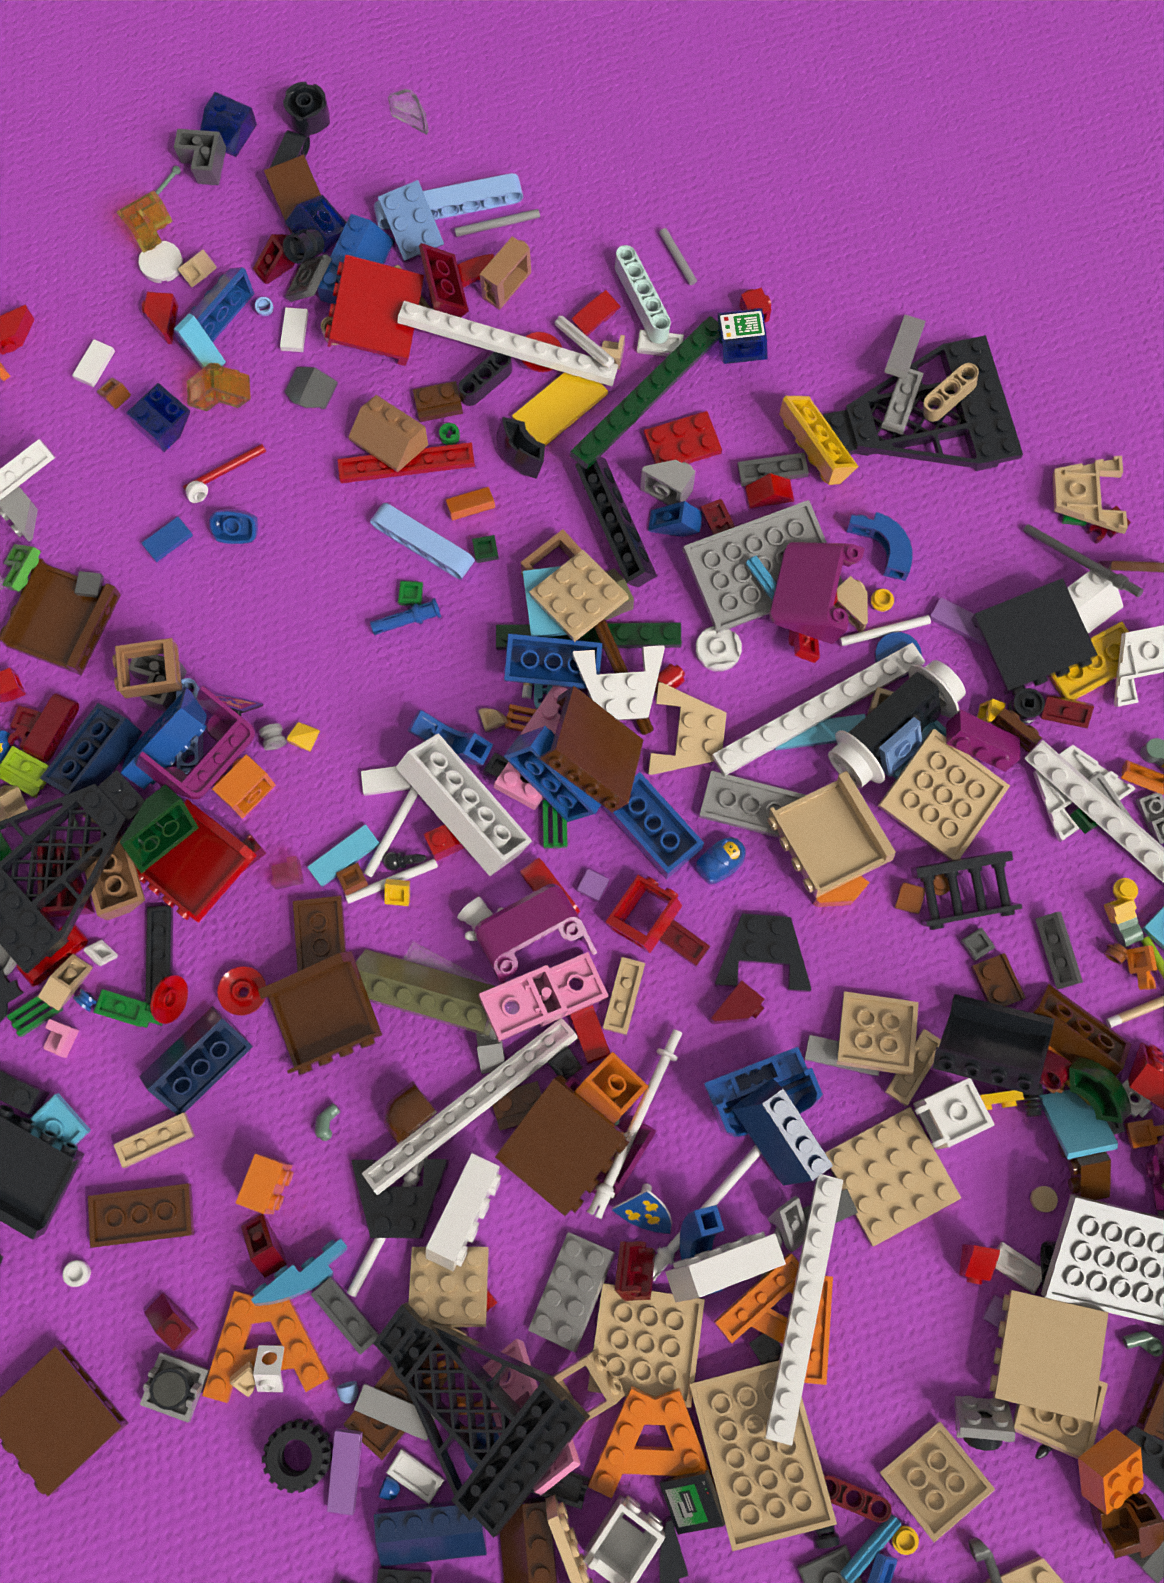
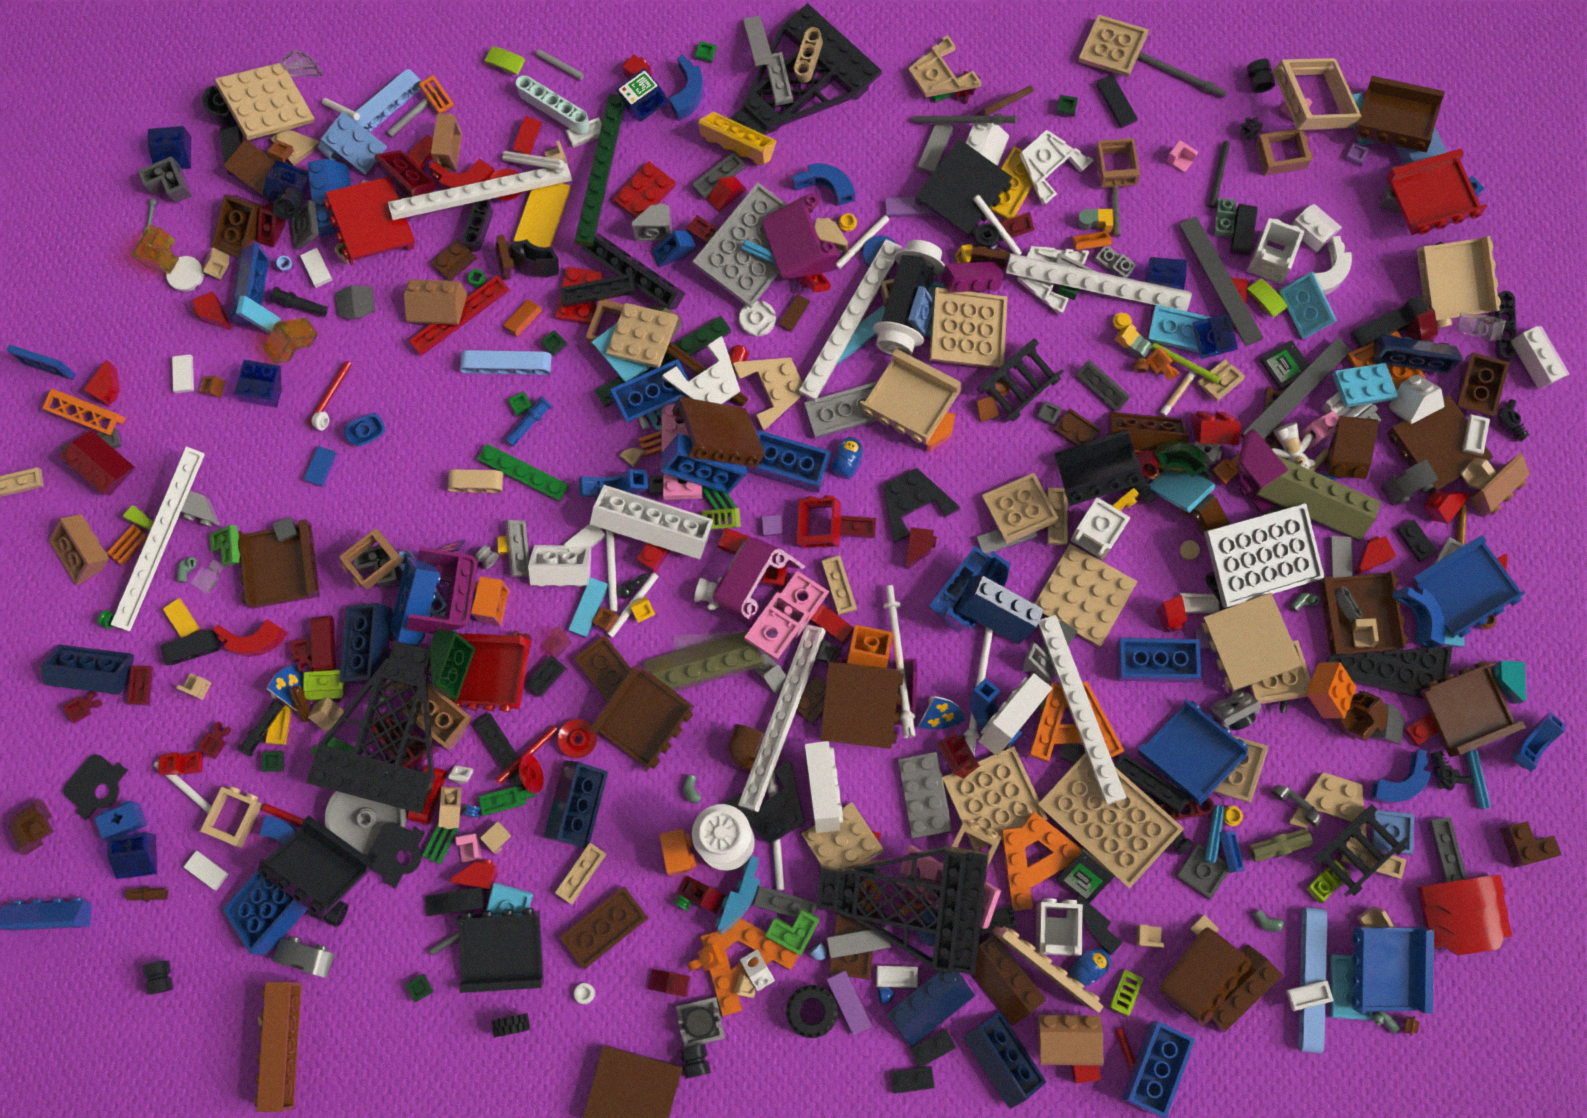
camera: 30 degrees left, 0 degrees up
(48, 1074) = (477, 875): none -> red slope
(91, 1045) = (496, 837): none -> tan panel
(139, 1433) = (695, 1061): none -> black wheel
(185, 974) = (531, 750): none -> red bar
(226, 1322) = (708, 958): none -> orange plate
(237, 1242) = (683, 902): none -> green bush
(241, 238) = (236, 224): none -> reddish brown slope
(247, 348) = (291, 300): none -> black pin
(252, 902) = (546, 676): none -> black plate
(310, 747) = (517, 548): none -> light grey tile
(311, 648) = (475, 481): none -> tan beam
(313, 1205) = (723, 837): none -> white brick
(331, 187) = (280, 151): none -> dark orange plate
(331, 1359) = (796, 936): none -> bright green plate
(340, 792) = (559, 566): none -> white slope
(348, 127) = (264, 101): none -> tan plate
(352, 190) = (301, 144): none -> tan wing
(367, 669) = (523, 472): none -> green plate
(421, 178) = (354, 115): none -> white bar
(488, 435) = (505, 263): none -> reddish brown plate
(517, 323) = (477, 173): none -> red arch
(529, 236) = (444, 107): none -> orange tile
(544, 513) = (583, 312): none -> red plate
(556, 852) = (735, 517): none -> lime slope
(559, 946) = (774, 577): none -> red panel
(564, 519) = (598, 290): none -> black plate
(622, 220) = (505, 60): none -> lime slope
(762, 665) = (794, 313): none -> reddish brown piece
(793, 368) = (689, 99): none -> blue arch
(833, 1444) = (1152, 784): none -> black tile
(842, 328) = (705, 52): none -> green tile
(905, 1439) = (1194, 752): none -> blue panel
(930, 1305) = (1158, 660): none -> blue brick
(1031, 572) = (935, 147): none -> light grey tile
(1046, 693) = (993, 220): none -> white bar

